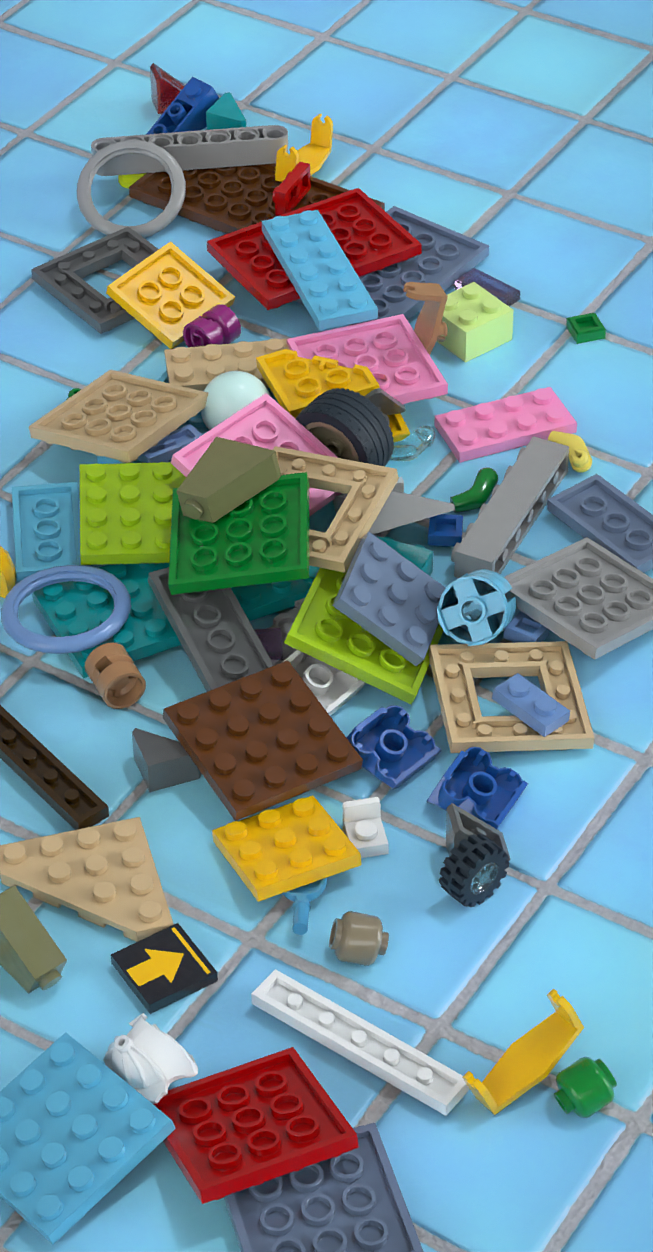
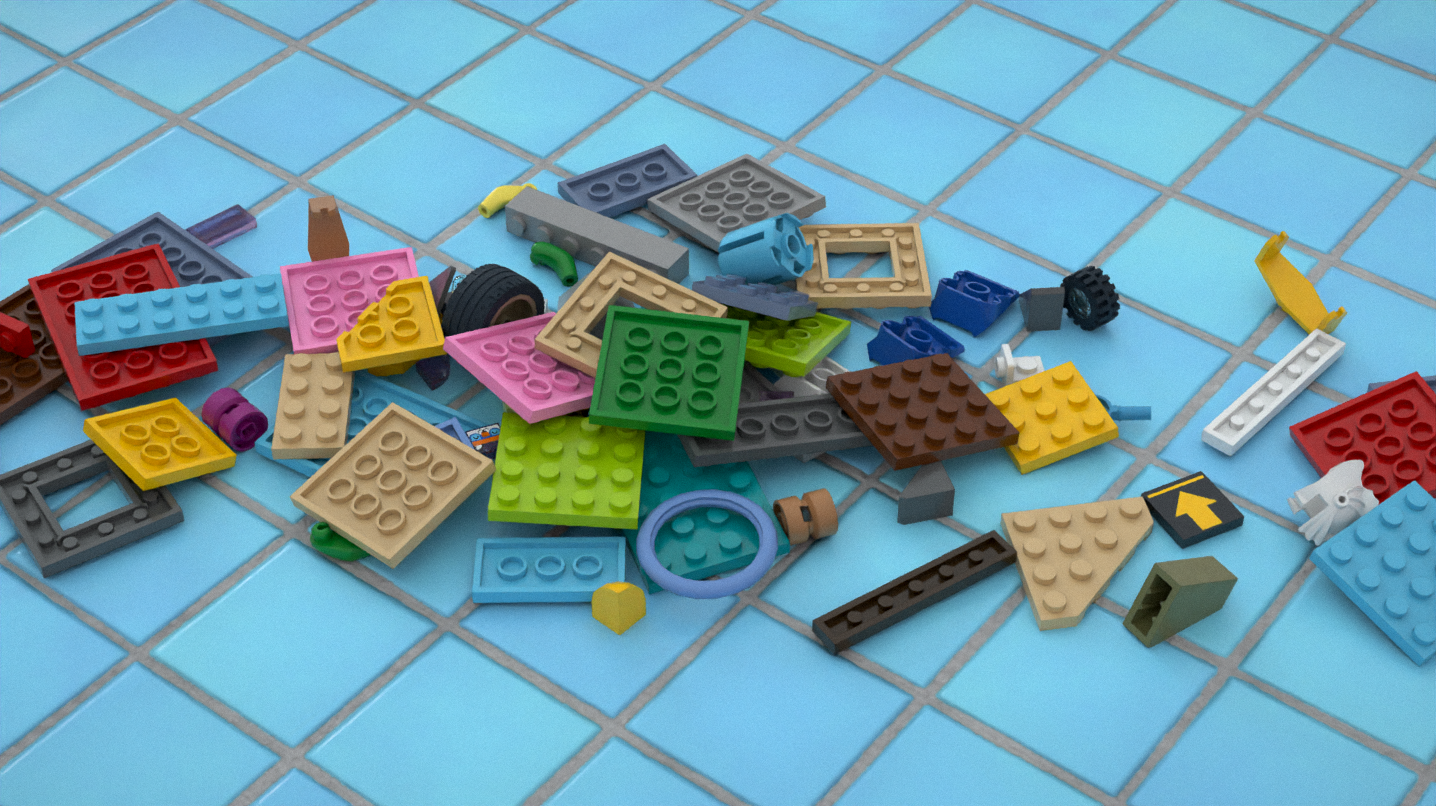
camera: 85 degrees left, 0 degrees up
(226, 478) = (612, 358): olive slope -> none
(230, 394) = (388, 384): light aqua piece -> none
(358, 938) = (1161, 379): dark tan head -> none
(475, 322) = (279, 233): yellowish green brick -> none
(504, 424) = (449, 233): bright pink plate -> none
(531, 704) = (884, 246): medium blue plate -> none
(585, 328) = (311, 173): green tile -> none
(585, 1087) = (1317, 268): green head -> none

